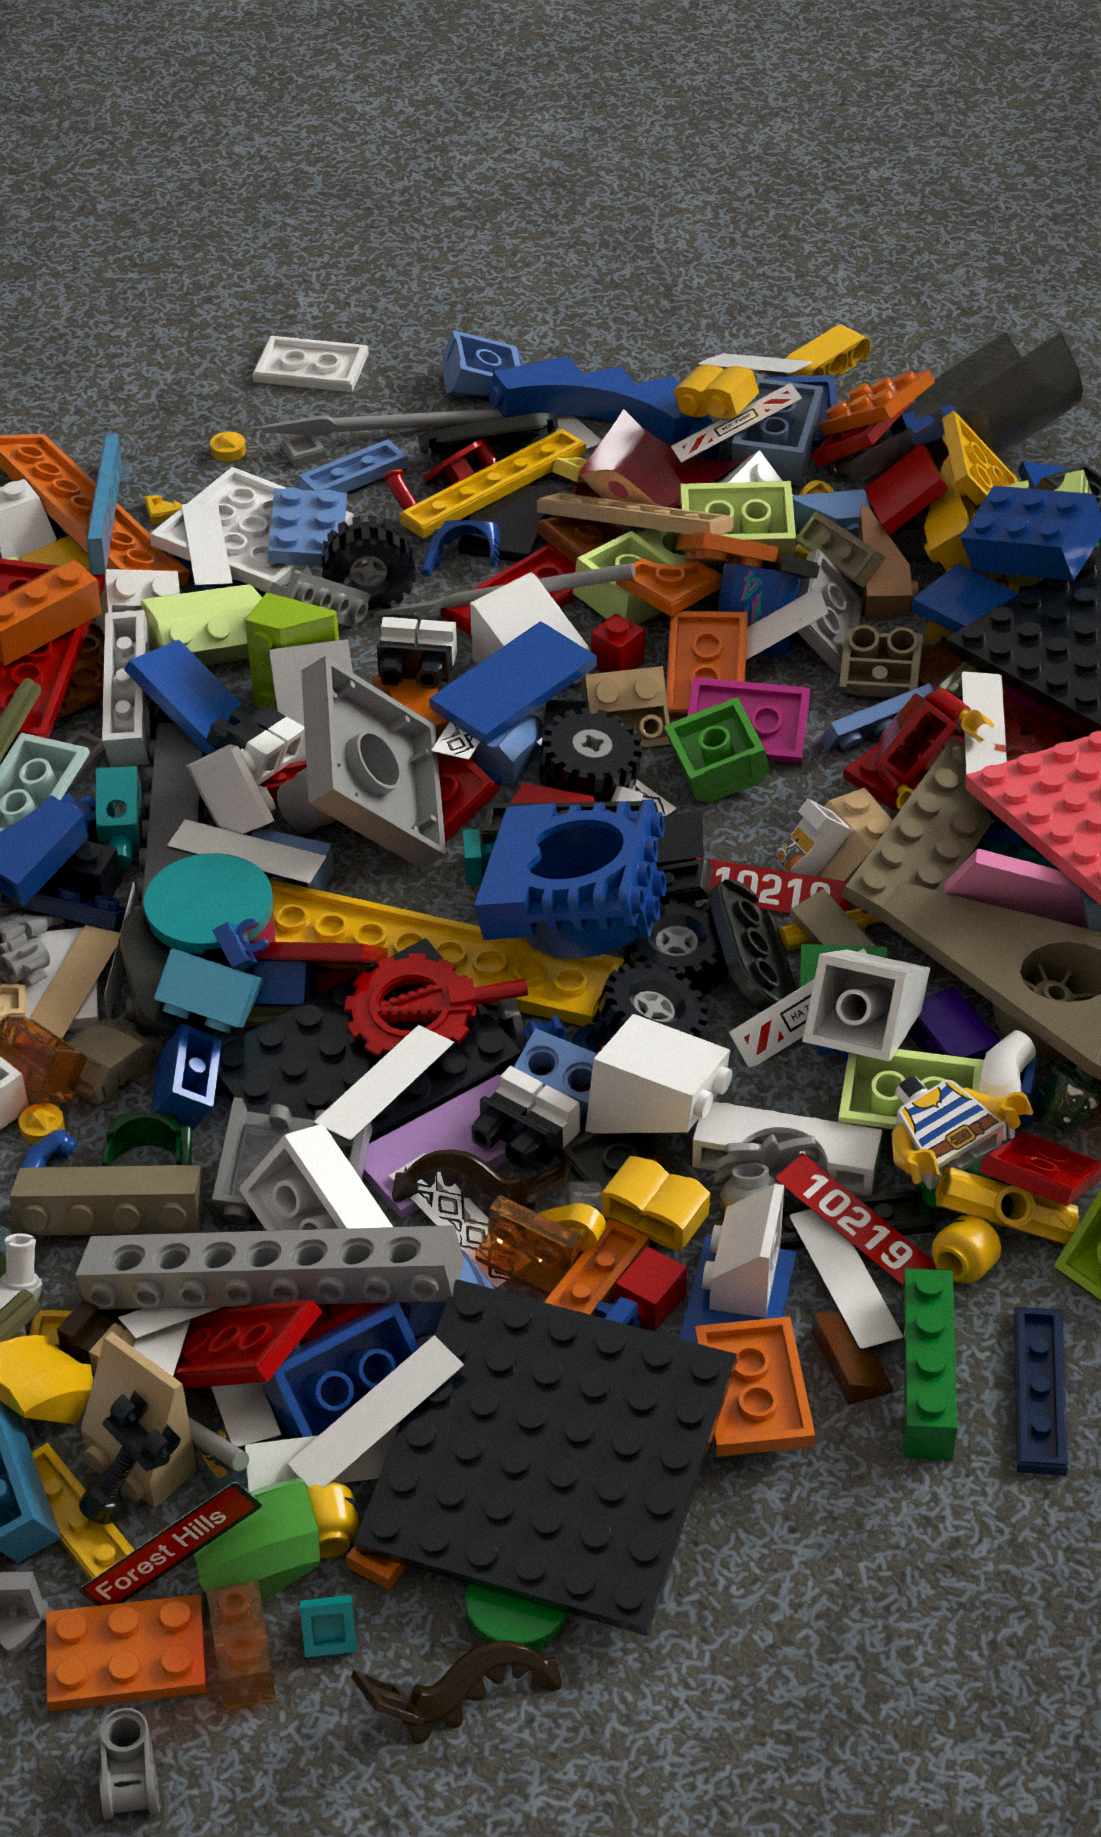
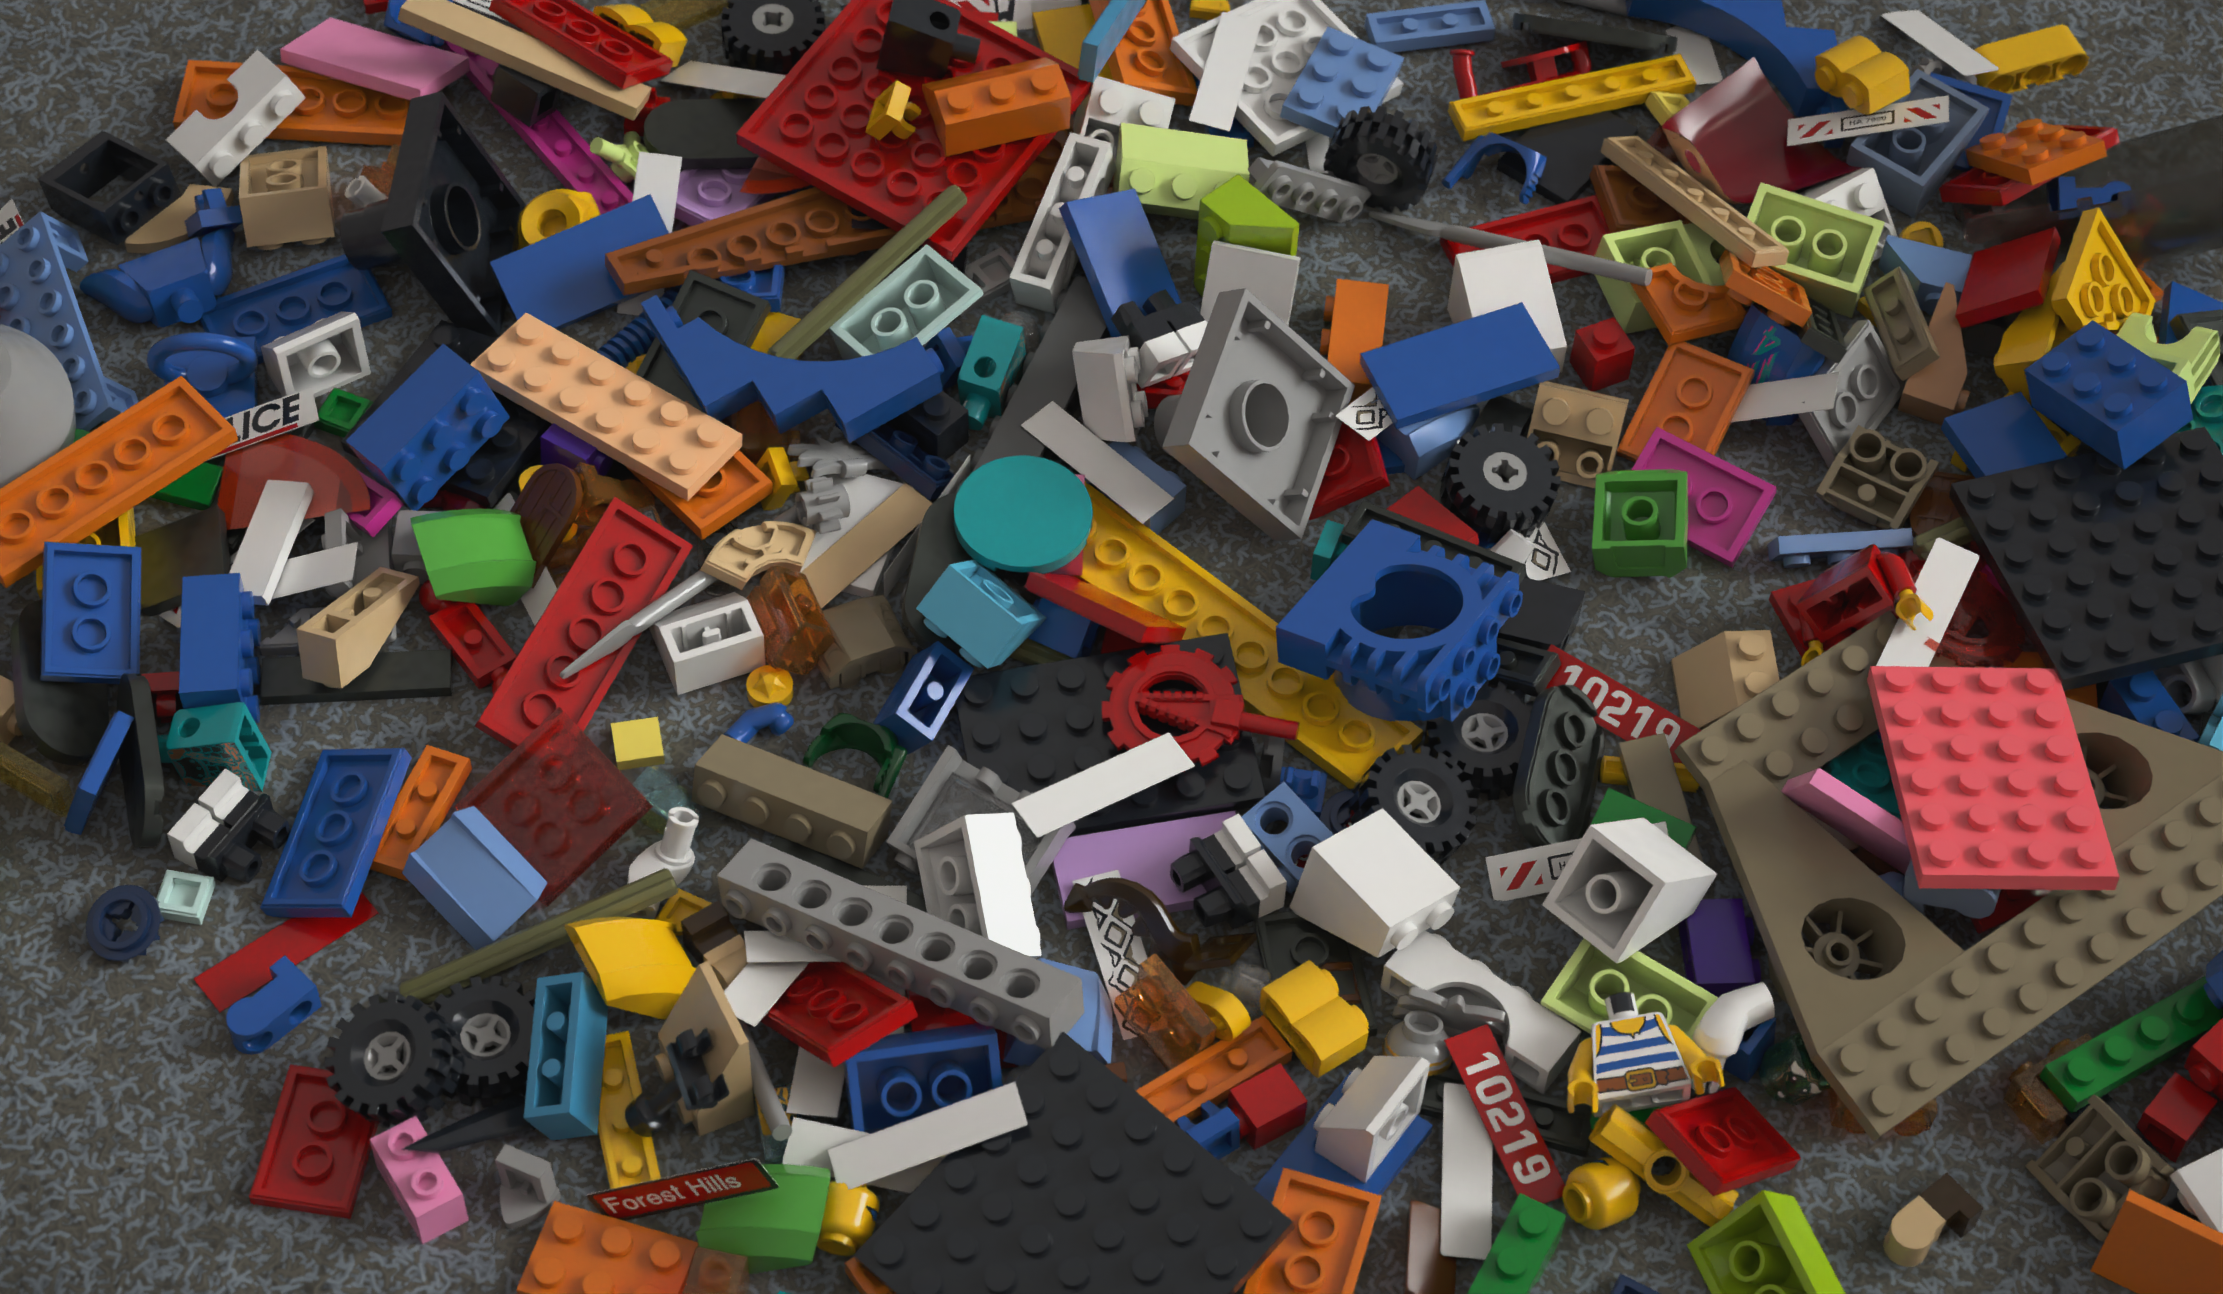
camera: 20 degrees right, 10 degrees up
(236, 945) = (1021, 579): blue tile -> none
(421, 657) = (1376, 290): black hips -> none
(812, 841) = (1685, 671): white leg -> none

